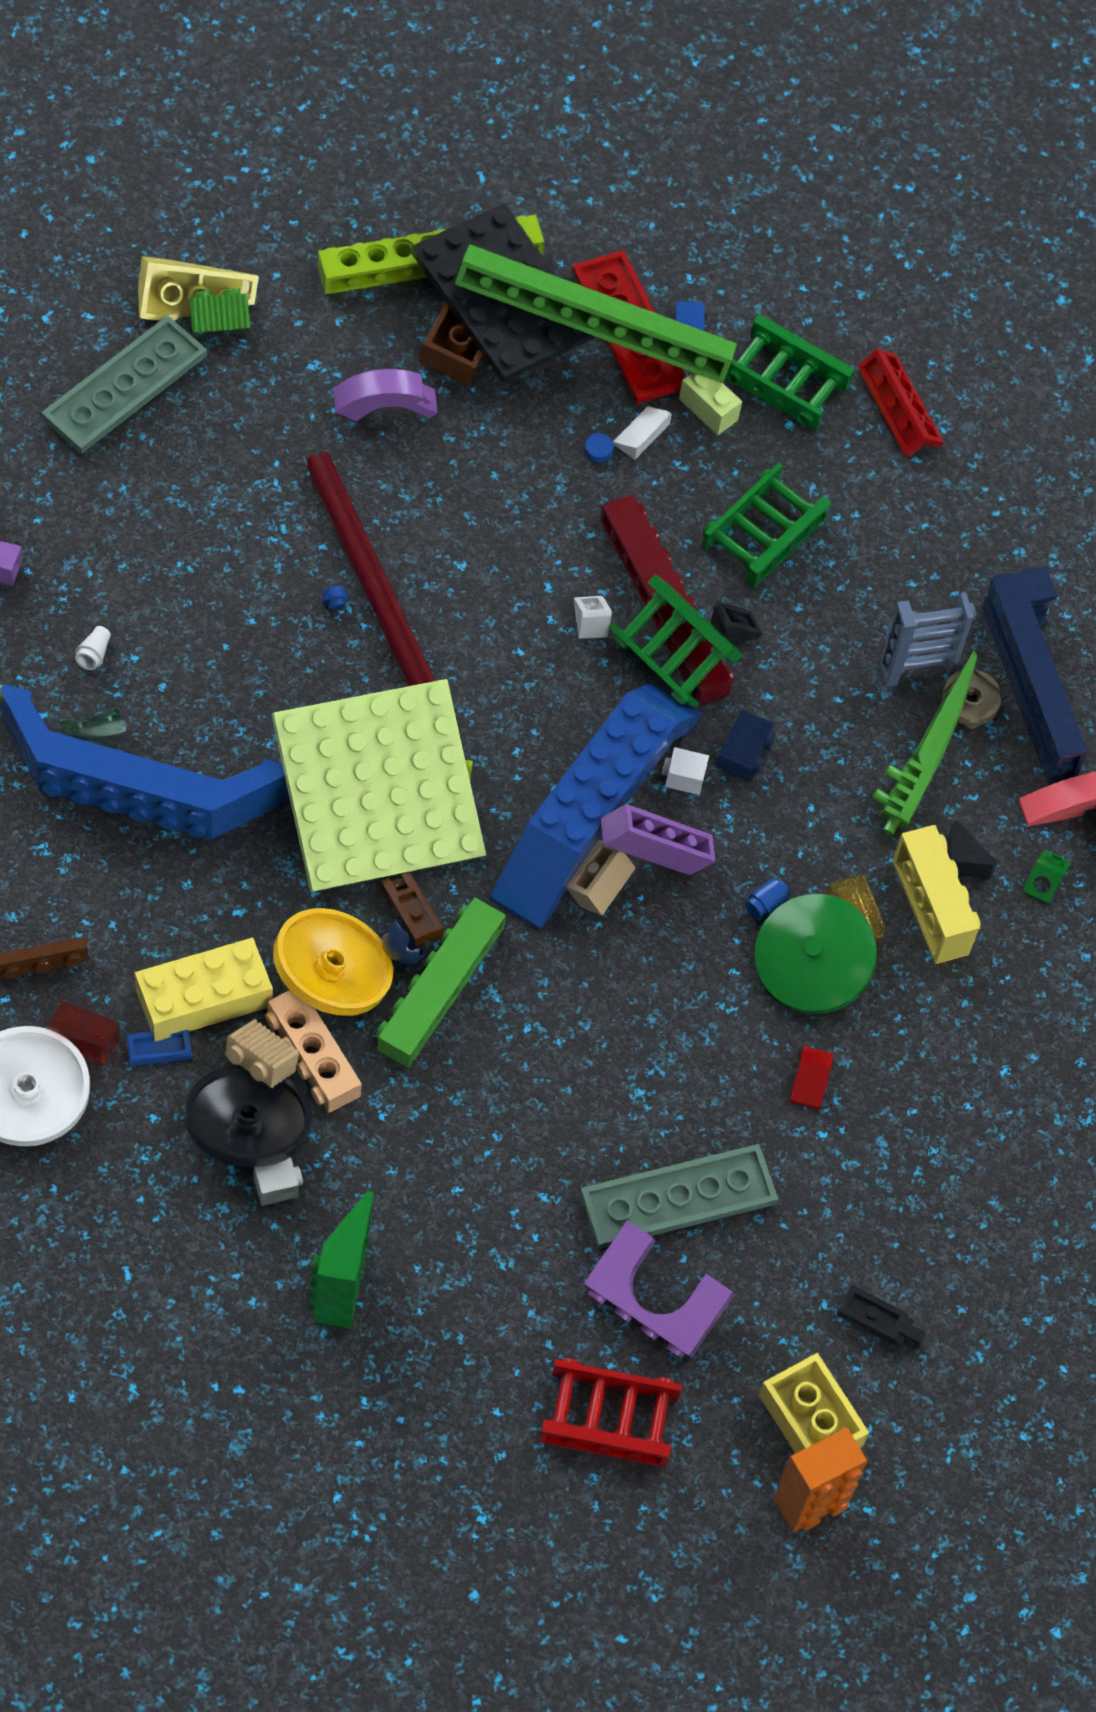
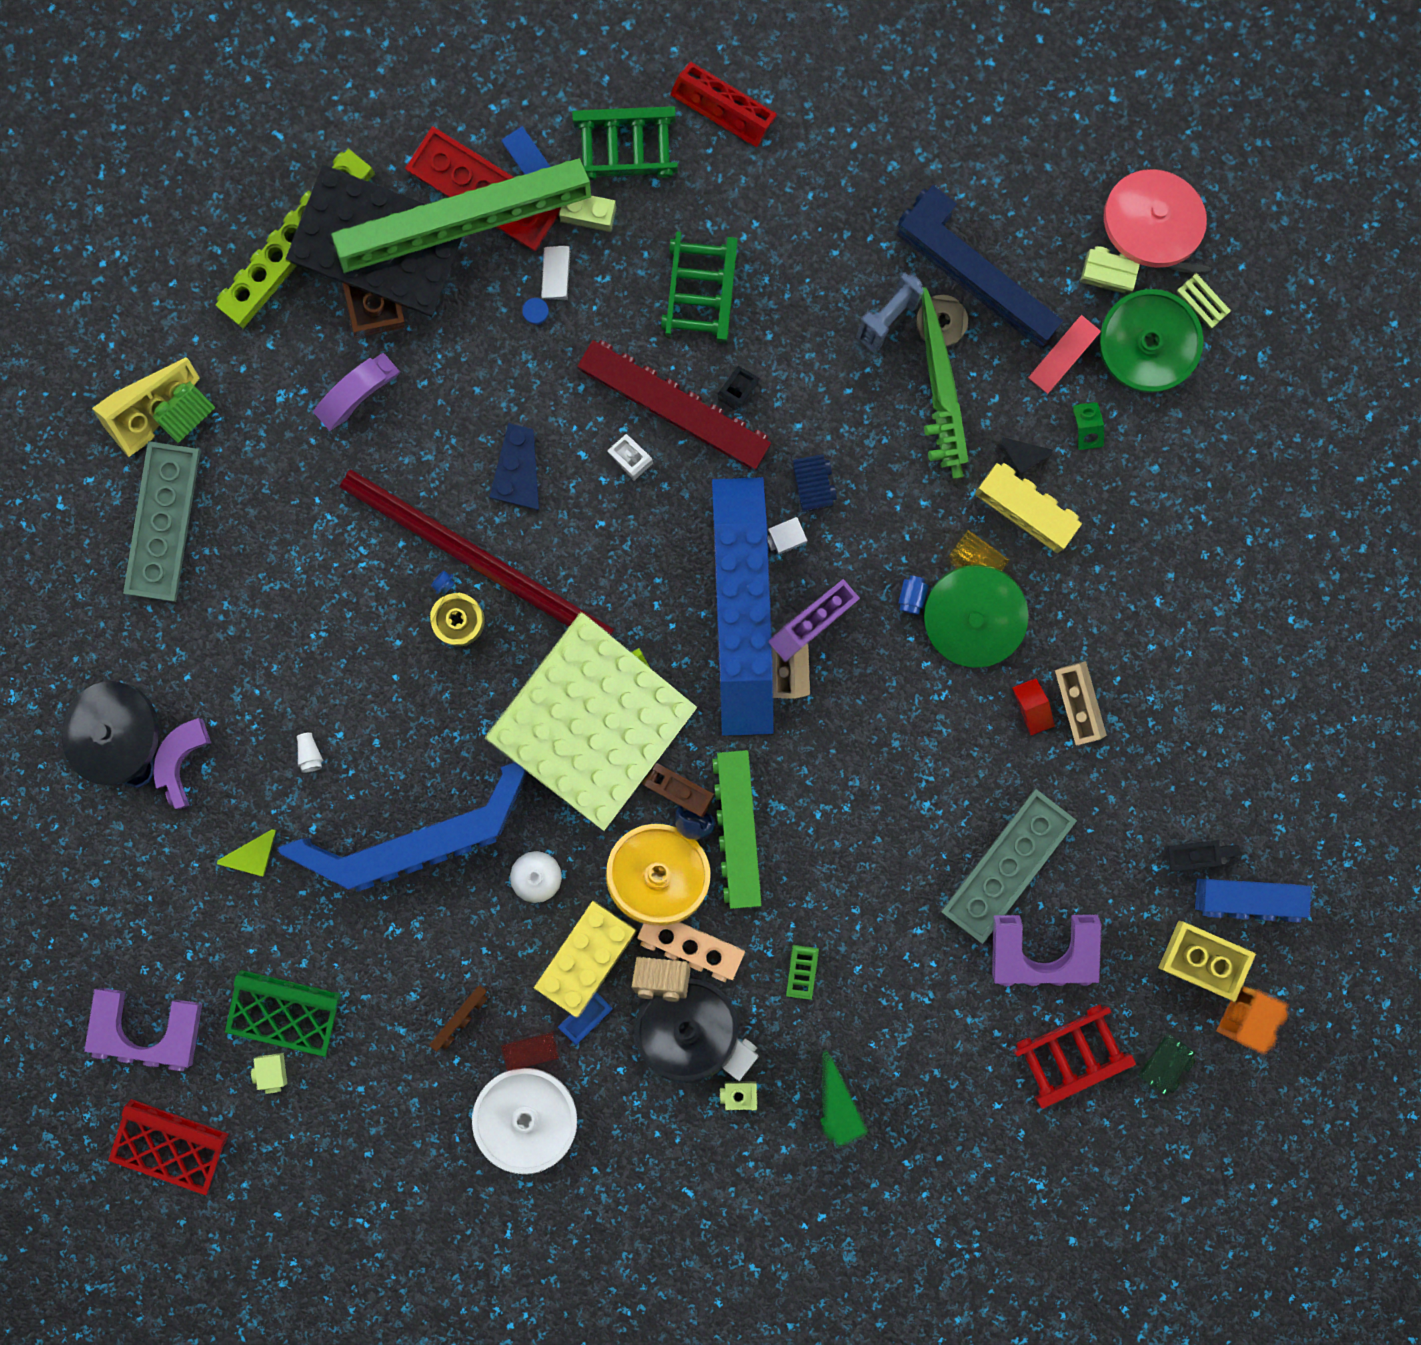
camera: 30 degrees left, 25 degrees up
(94, 725) = (358, 819): plate -> none
(214, 892) = (535, 877): none -> white cylinder
(253, 1224) = (747, 1088): none -> yellowish green brick
(323, 630) = (442, 621): none -> light yellow brick
(412, 1125) = (804, 950): none -> bright green slope
(477, 556) = (516, 469): none -> dark blue wing
(700, 1487) = (1167, 1065): none -> clear green brick
(701, 632) = (726, 425): green fence -> none
(861, 1096) = (1080, 703): none -> tan brick
(903, 1385) = (1256, 898): none -> blue brick

